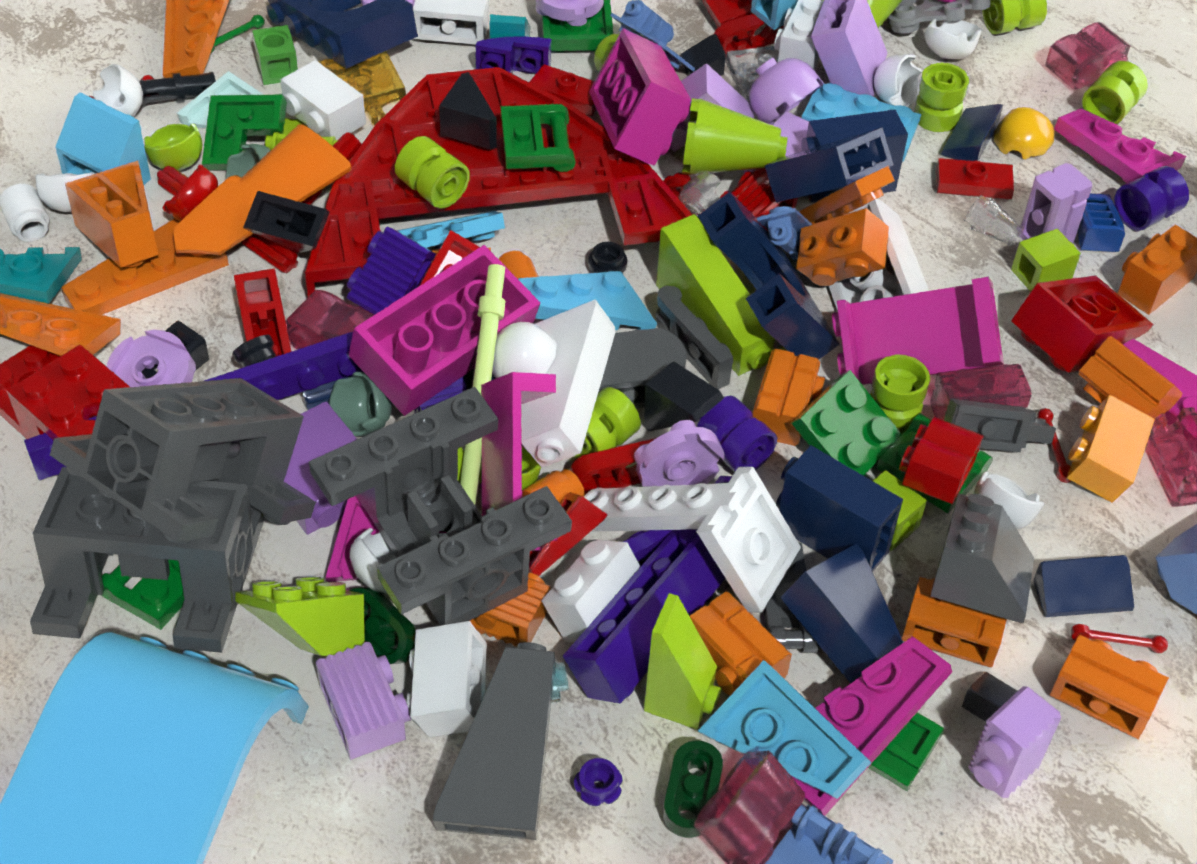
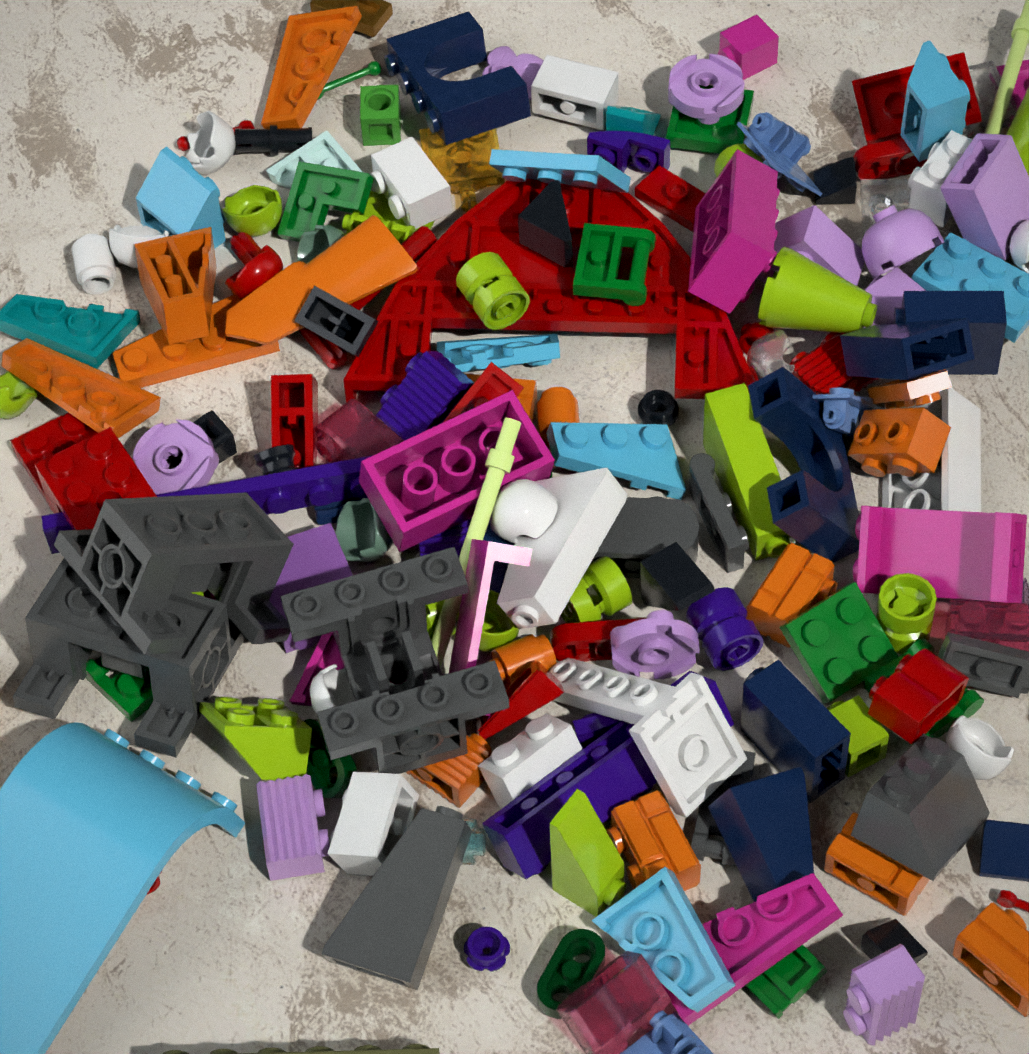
camera: 20 degrees right, 5 degrees up
(485, 62) = (569, 169): none -> medium azure wing

